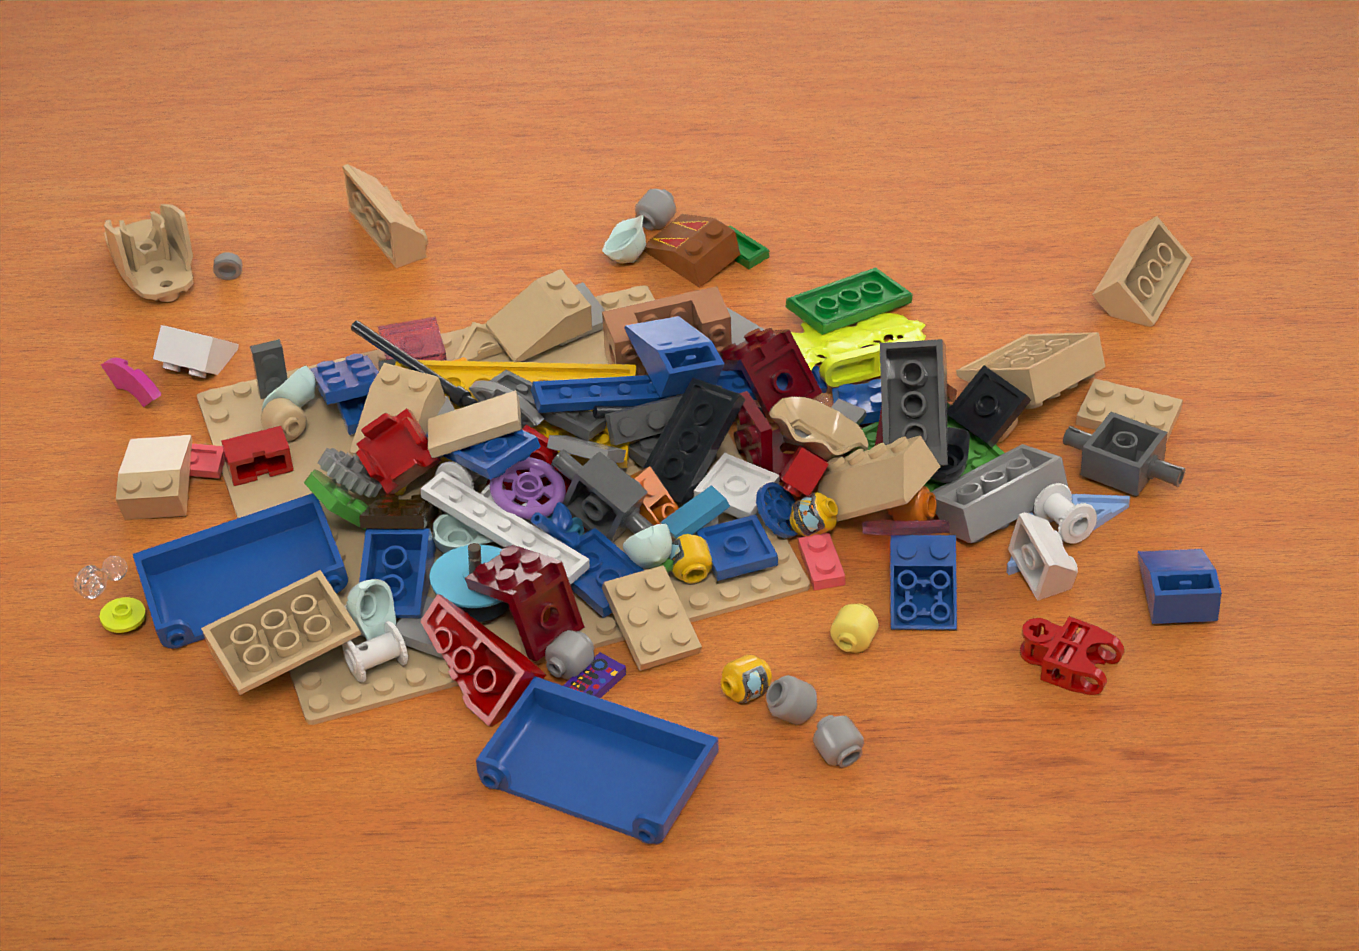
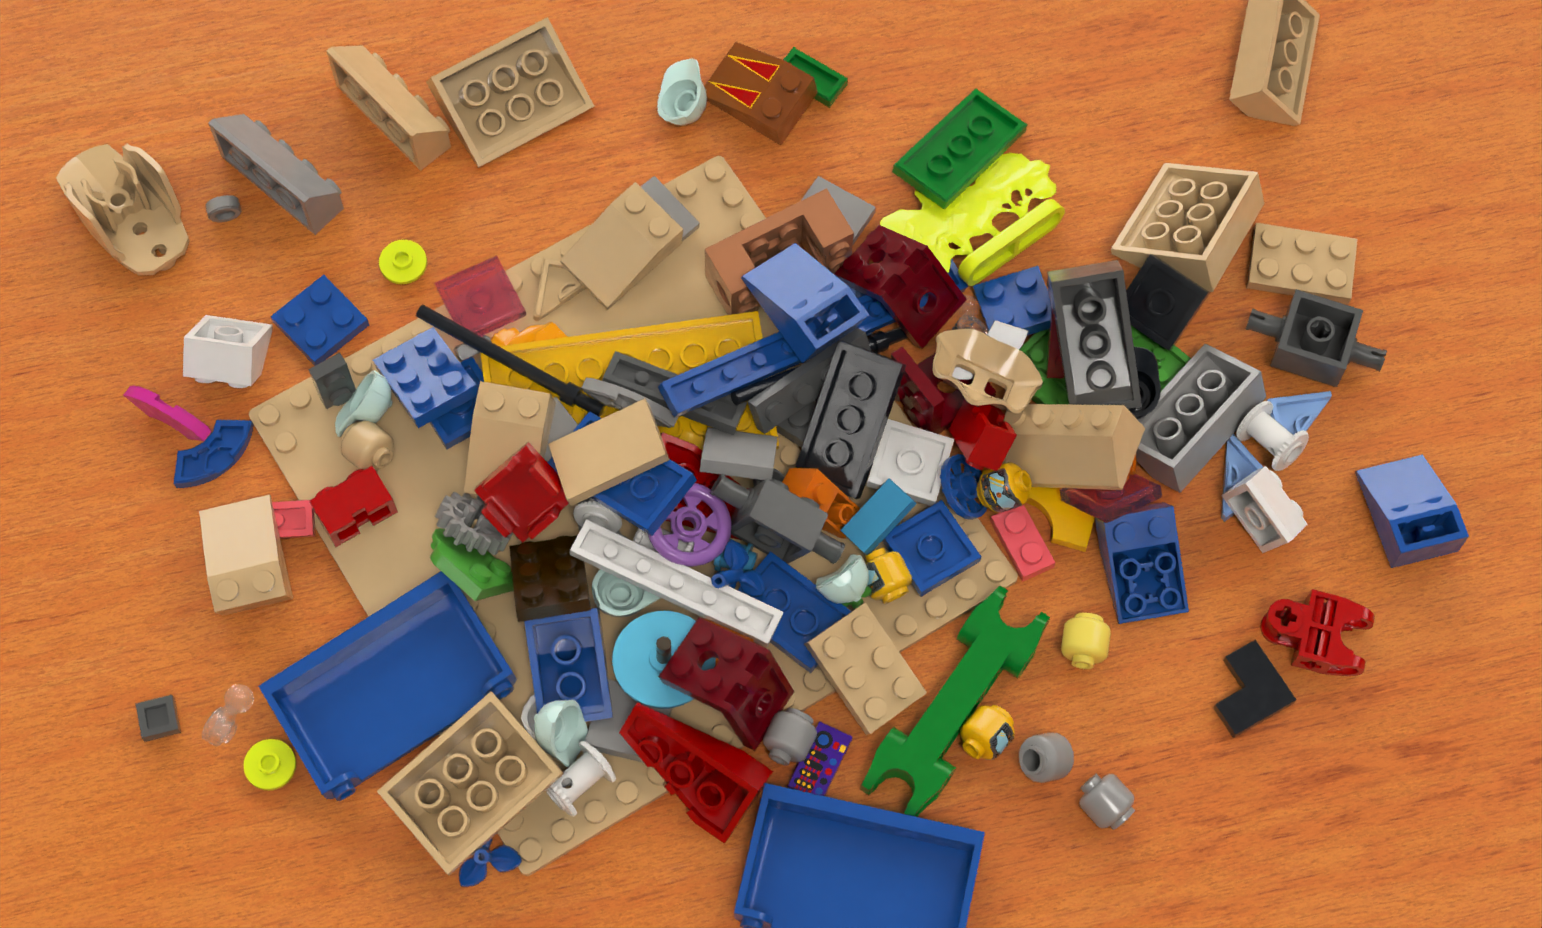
camera: 15 degrees left, 25 degrees up
(43, 571) = (158, 718): none -> dark grey plate
(159, 417) = (214, 455): none -> blue tile
(277, 690) = (475, 869): none -> blue plant
(278, 247) = (277, 170): none -> light grey slope
(295, 343) = (320, 320): none -> blue plate
(362, 312) = (403, 261): none -> neon yellow piece
(484, 221) = (510, 92): none -> tan slope
(657, 208) = (702, 37): light grey head -> none
(764, 625) = (920, 755): none -> green piece
(865, 551) = (1068, 524): none -> yellow tile
(1003, 693) = (1261, 693): none -> black tile

